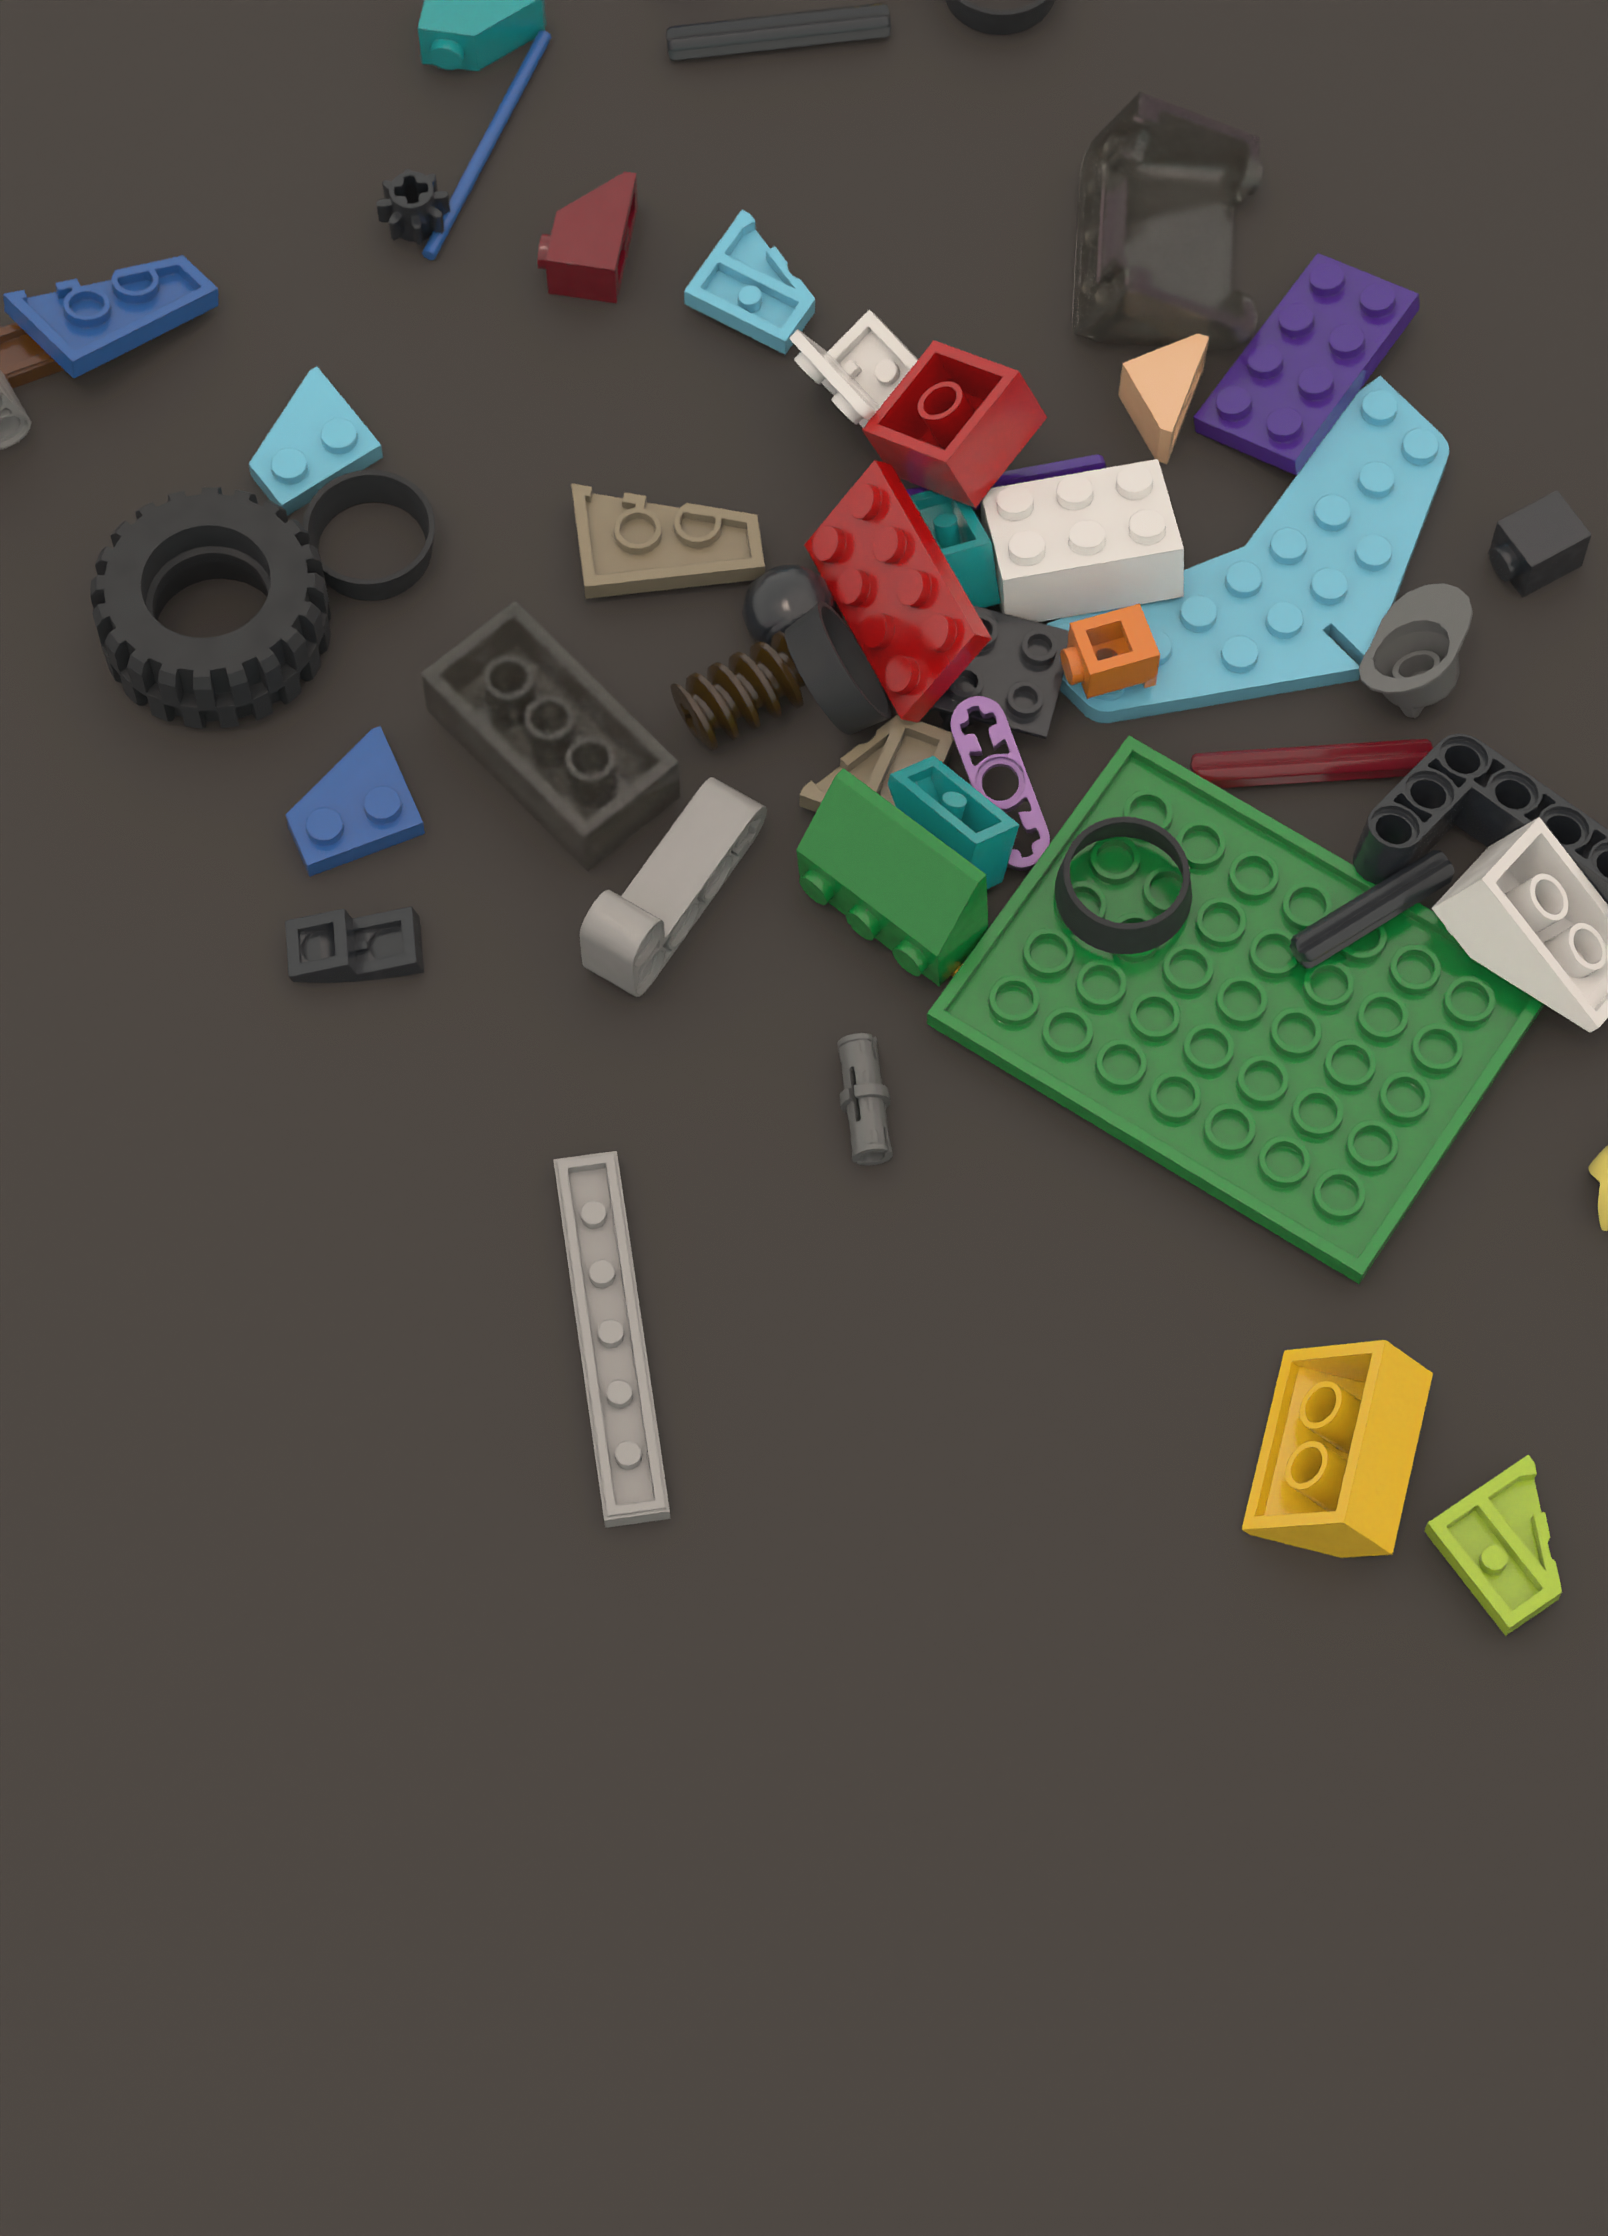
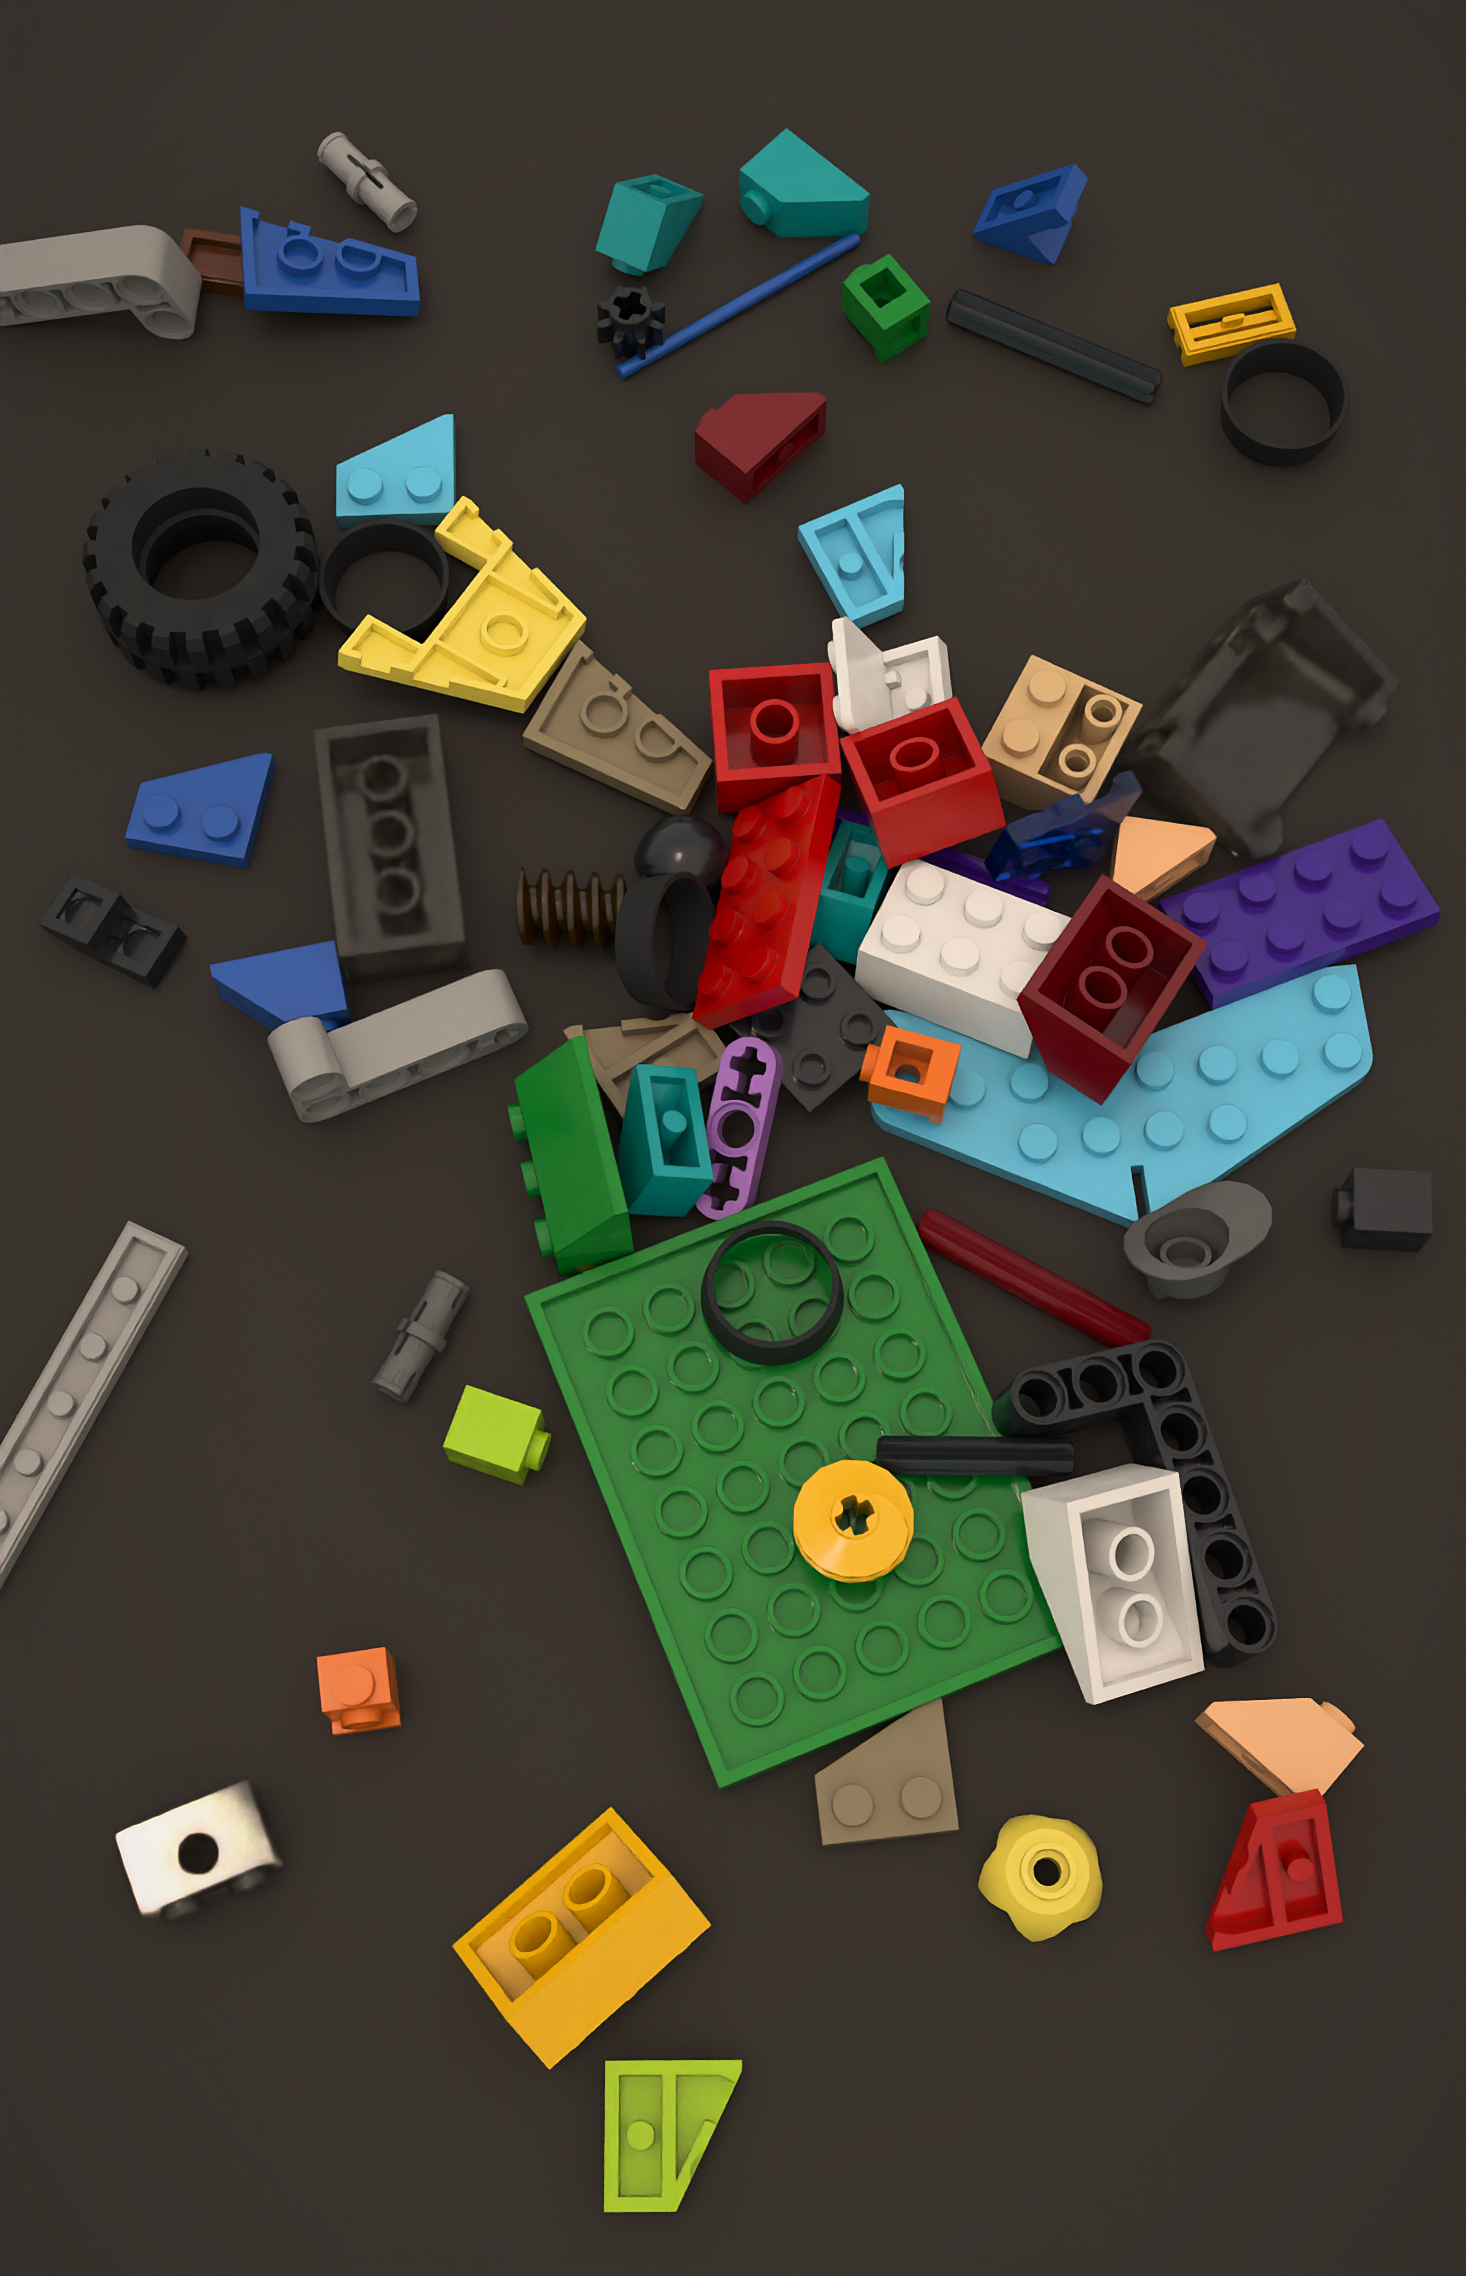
camera: 35 degrees right, 5 degrees up
(87, 217) = (367, 182): none -> light grey pin
(364, 119) = (646, 222): none -> teal slope
(502, 521) = (496, 638): none -> light yellow wing
(544, 899) = (287, 986): none -> blue slope
(619, 74) = (886, 307): none -> green brick
(792, 462) = (771, 730): none -> red brick
(987, 1131) = (497, 1436): none -> lime brick
(1005, 1545) = (159, 1849): none -> clear smoke brick
(1028, 1385) = (359, 1691): none -> orange brick
(1029, 325) = (1056, 737): none -> tan slope
(1090, 403) = (1063, 834): none -> clear blue wing
(1219, 496) = (1106, 987): none -> dark red slope
(1312, 1036) = (865, 1490): none -> yellow piece
(1484, 1196) = (890, 1784): none -> dark tan wing

